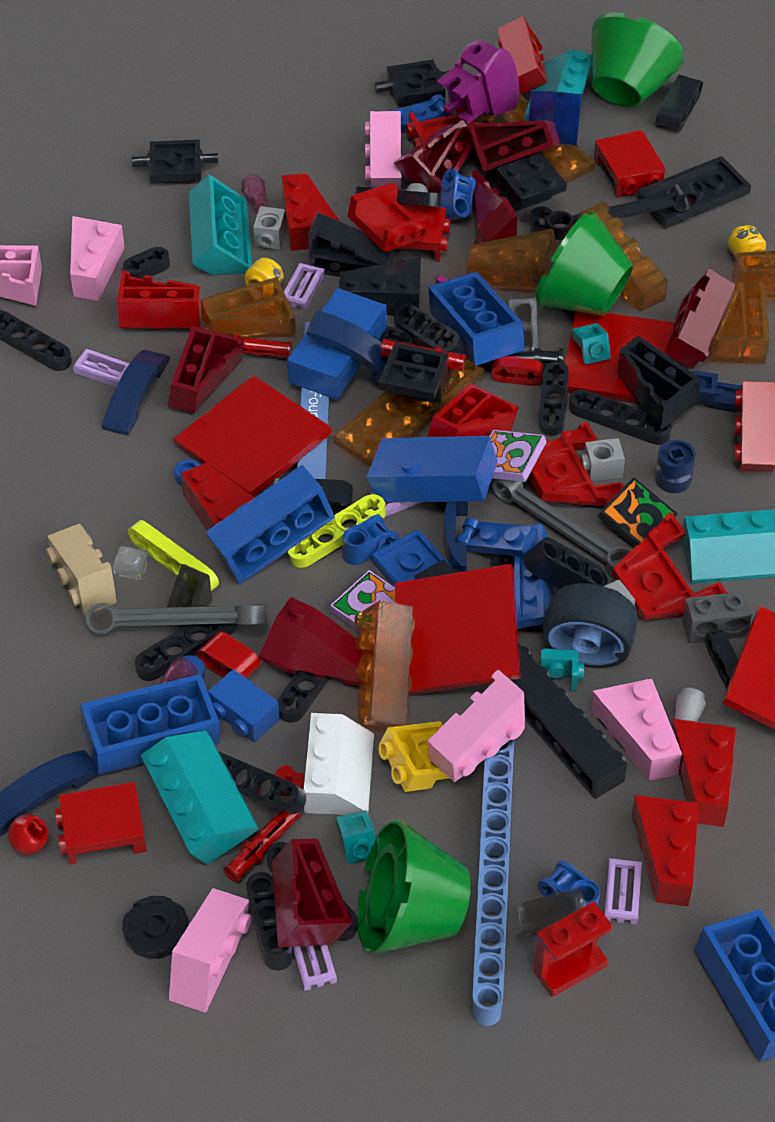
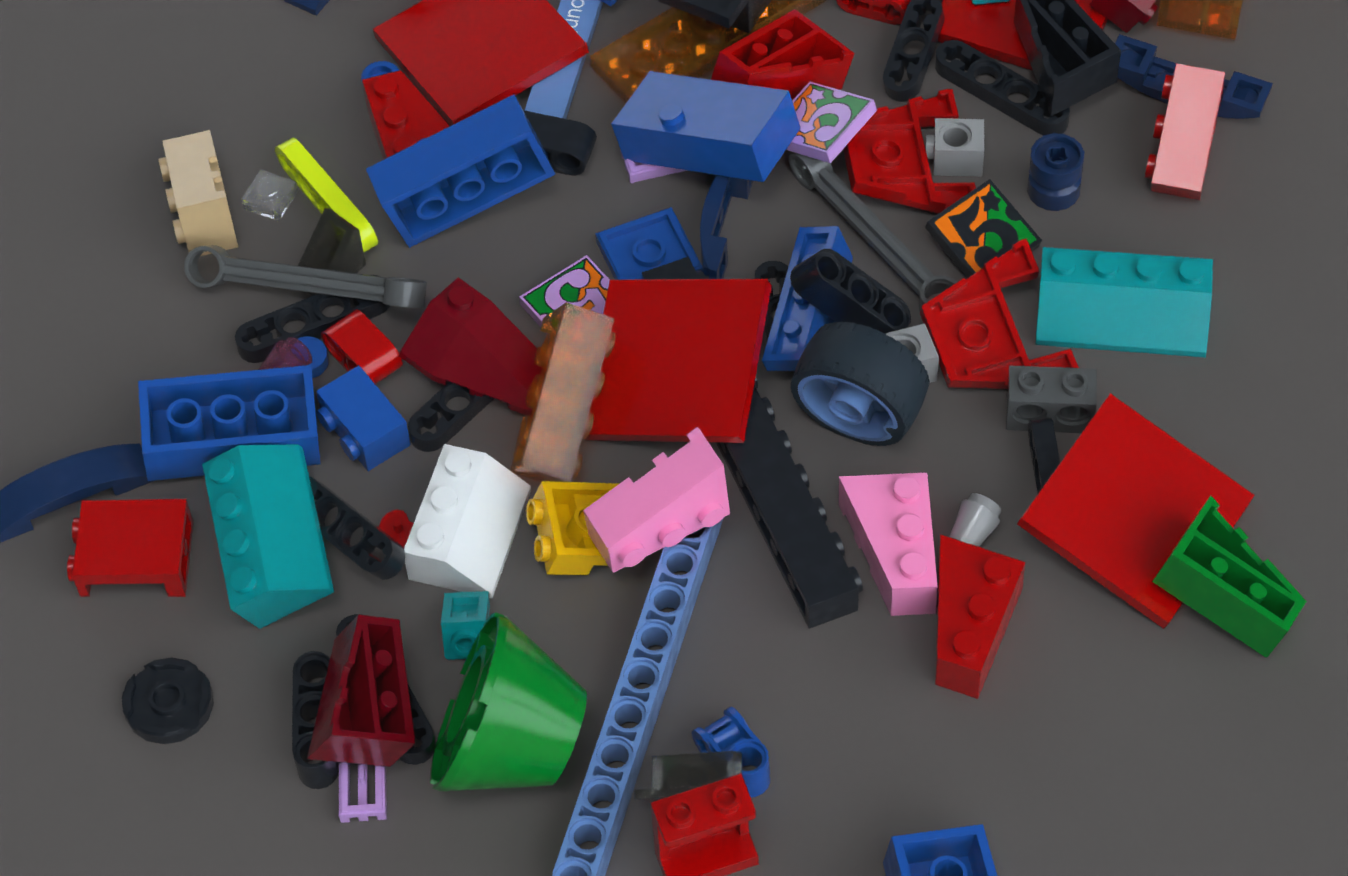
camera: 15 degrees right, 5 degrees up
(28, 834) = (31, 546): red piece -> none
(207, 949) = (222, 742): bright pink wedge -> none
(238, 865) = (295, 639): red pin -> none
(334, 527) = (561, 198): neon yellow beam -> none
(366, 539) = (593, 211): blue piece -> none
(496, 537) = (770, 236): blue plate -> none
(563, 664) = (814, 430): teal bracket -> none
(621, 914) = (798, 796): lavender tile -> none
(669, 844) = (889, 712): red wedge -> none

